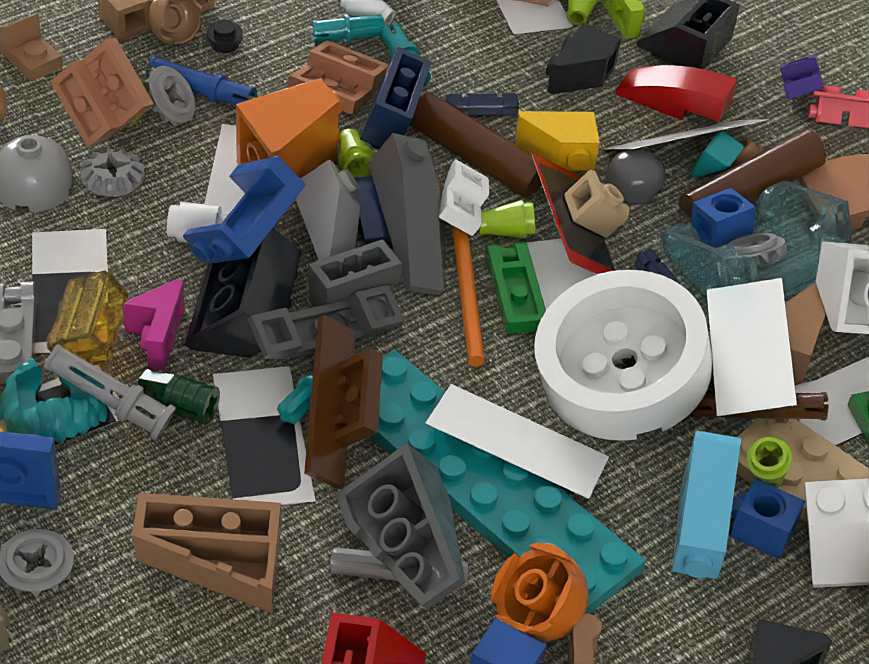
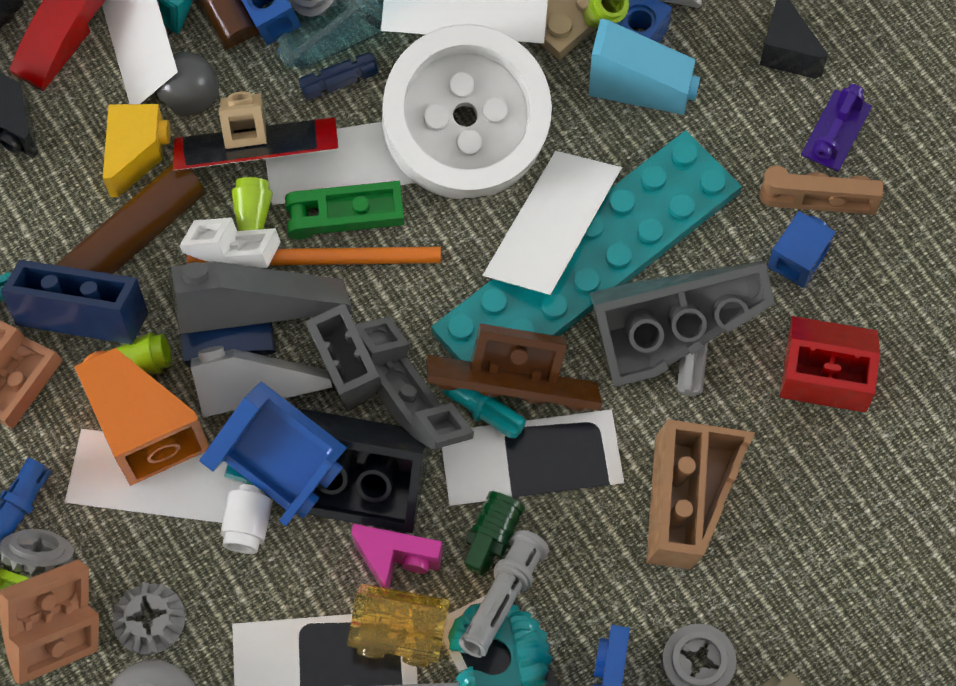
camera: 80 degrees left, 20 degrees up
(485, 103) = (60, 222): dark blue axle -> none
(541, 592) = (745, 212): orange cylinder -> none

